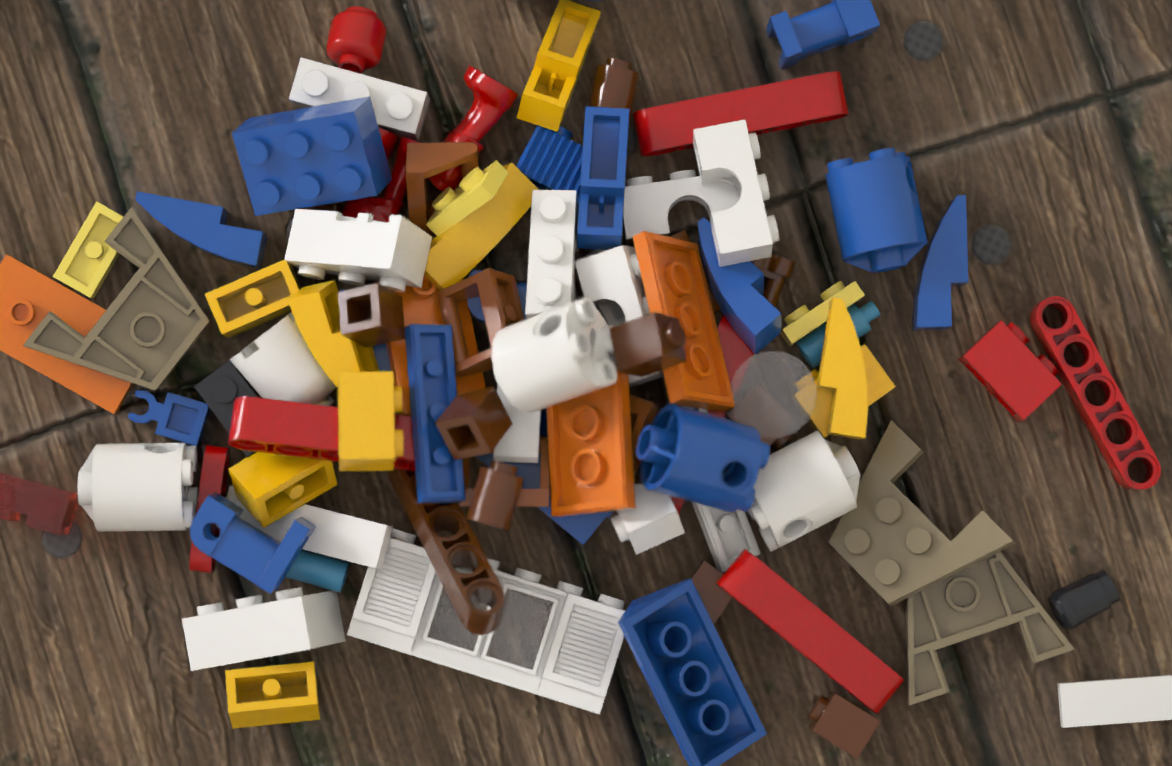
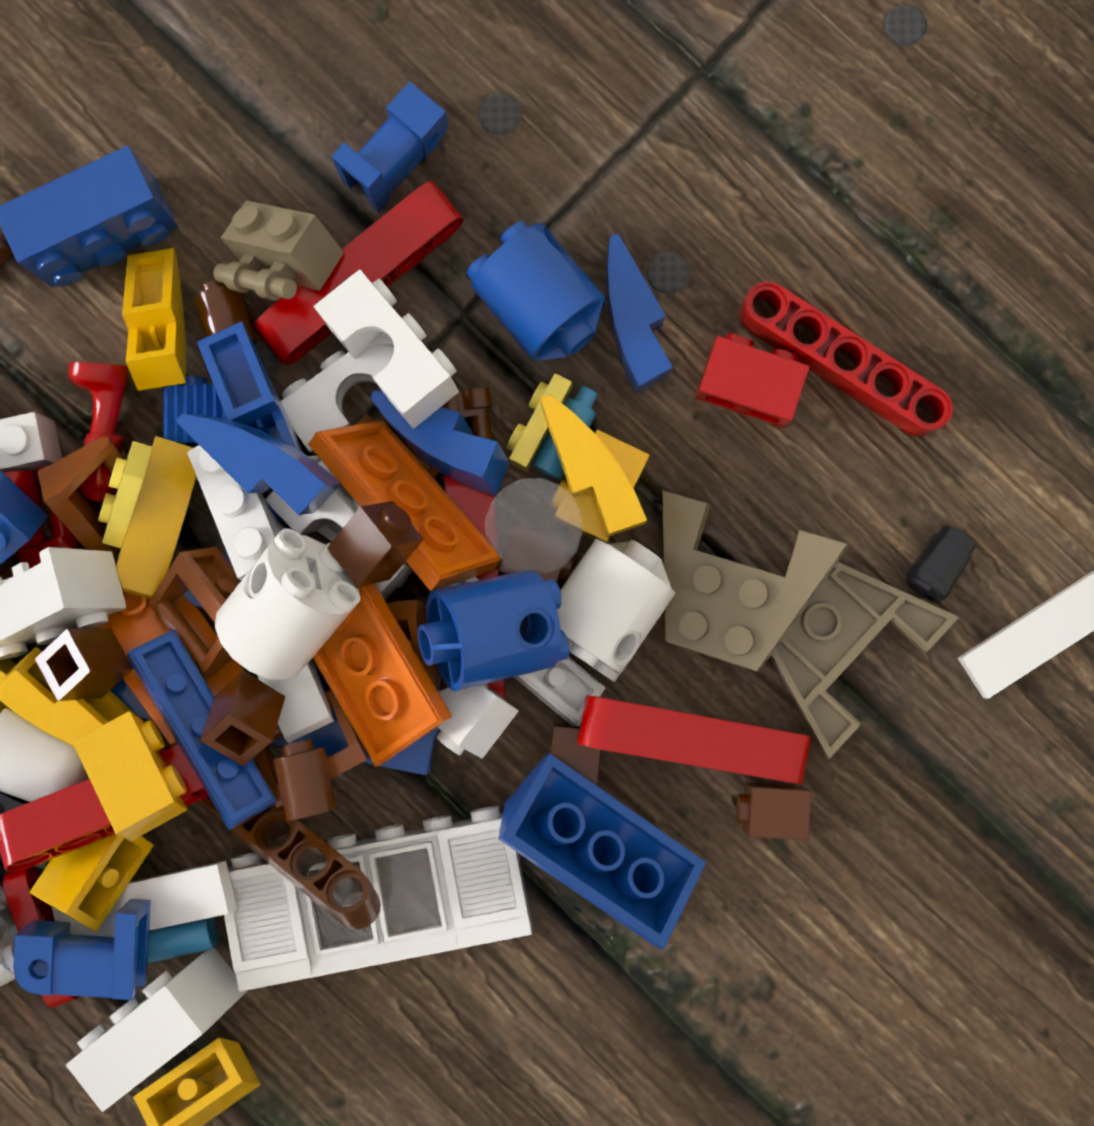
camera: 30 degrees left, 0 degrees up
(593, 233) = (262, 461): none -> blue slope
(684, 67) = (277, 252): none -> dark tan brick

